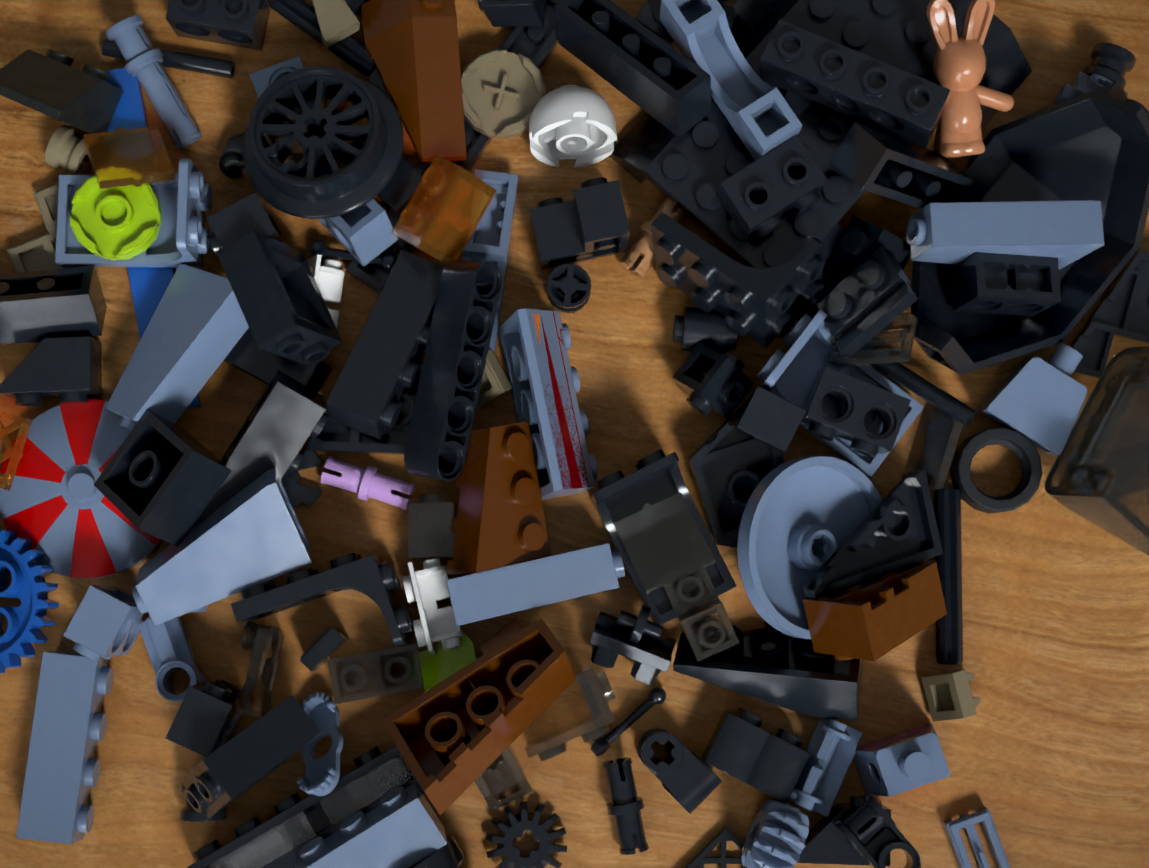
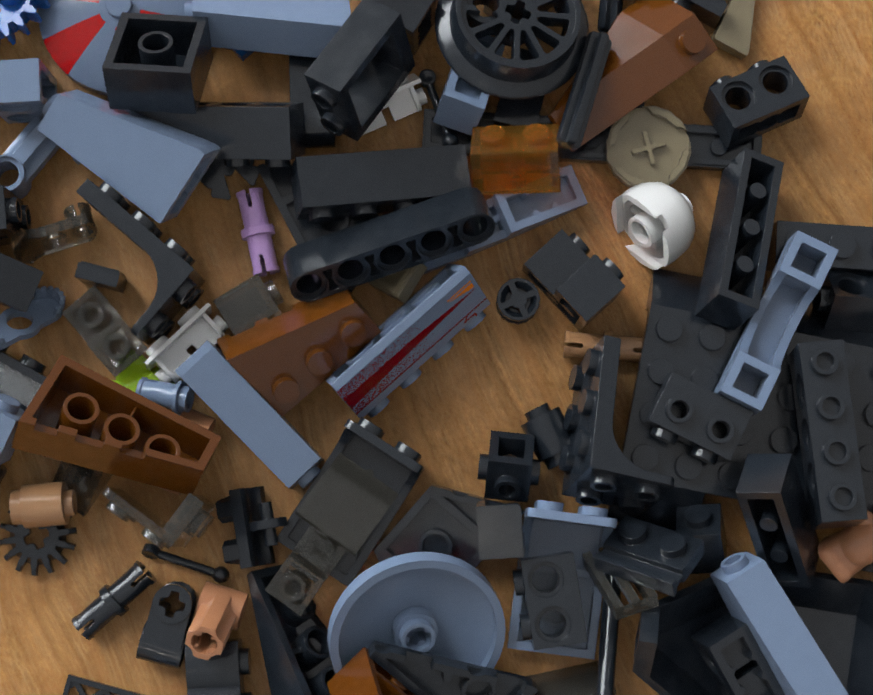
camera: 65 degrees right, 0 degrees up
(420, 114) = (584, 90): none -> black axle
(472, 646) = (172, 396): none -> sand blue pin
(503, 820) = (42, 505): none -> medium nougat brick
(698, 721) = (216, 615): none -> nougat piece

